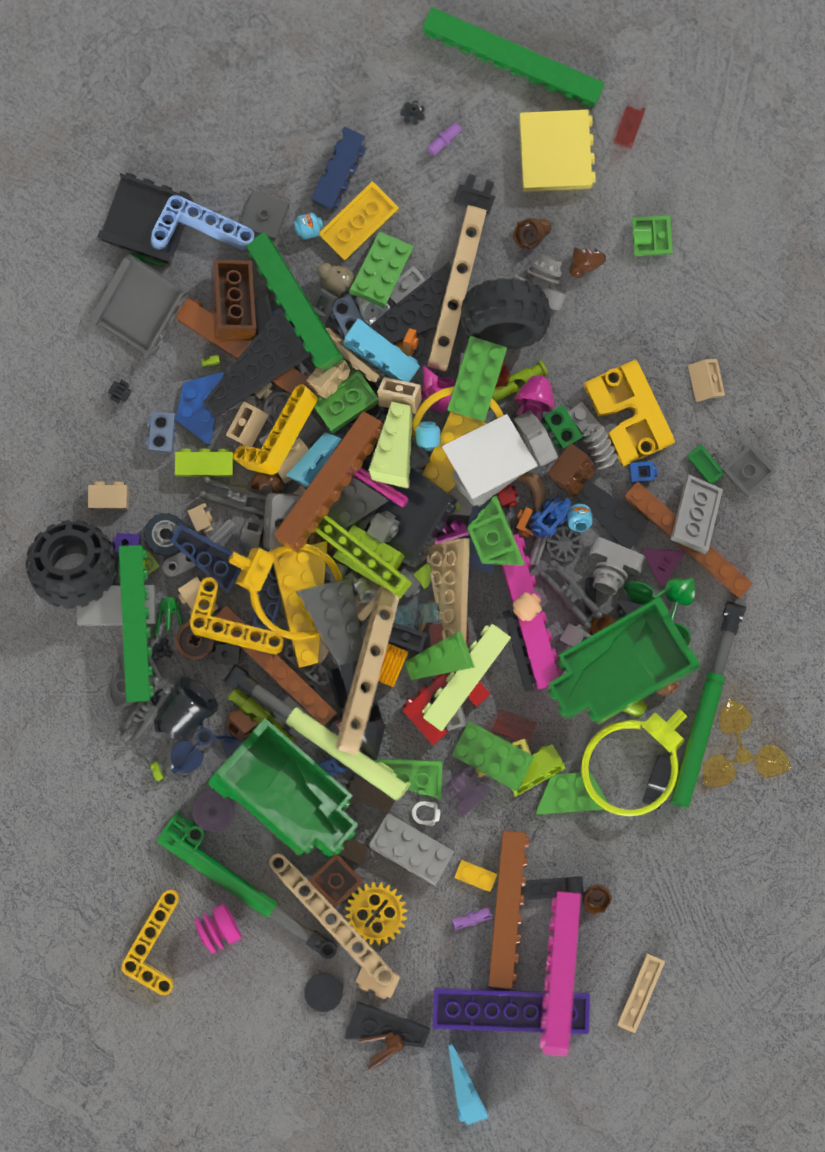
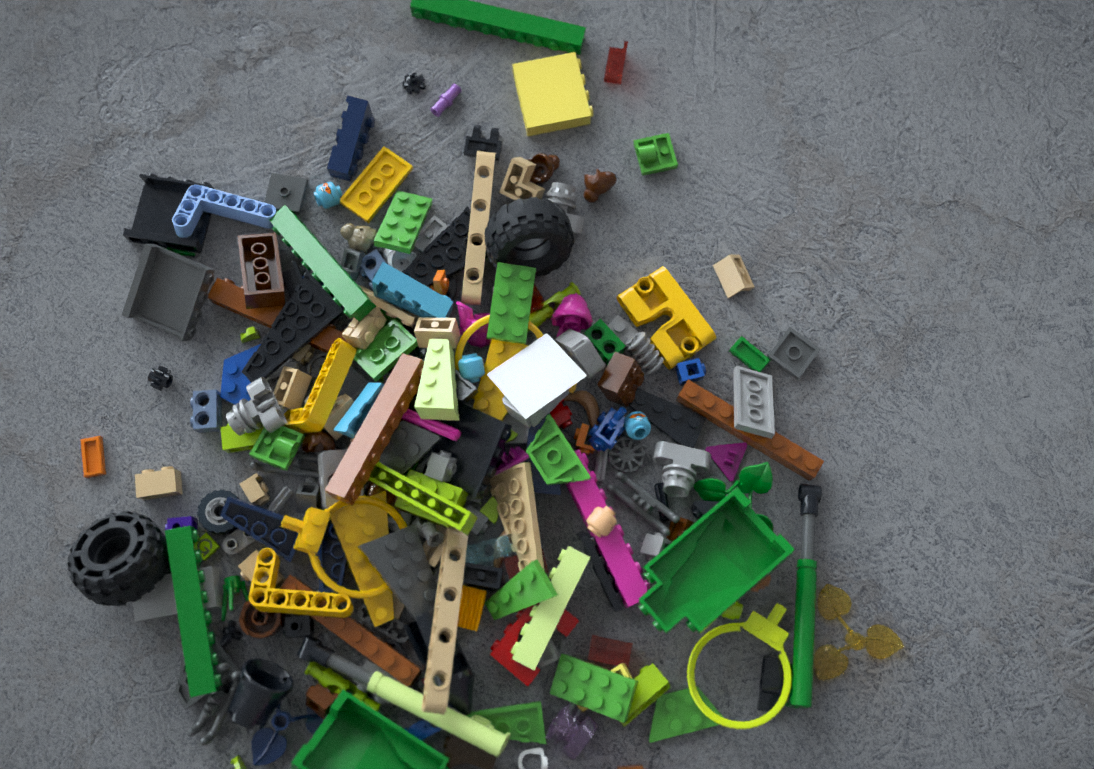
camera: 10 degrees left, 10 degrees down
(46, 458) = (93, 456): none -> orange tile
(221, 441) = (262, 408): none -> light grey beam
(229, 480) = (277, 447): none -> bright green plate
(504, 249) = (517, 180): none -> tan brick

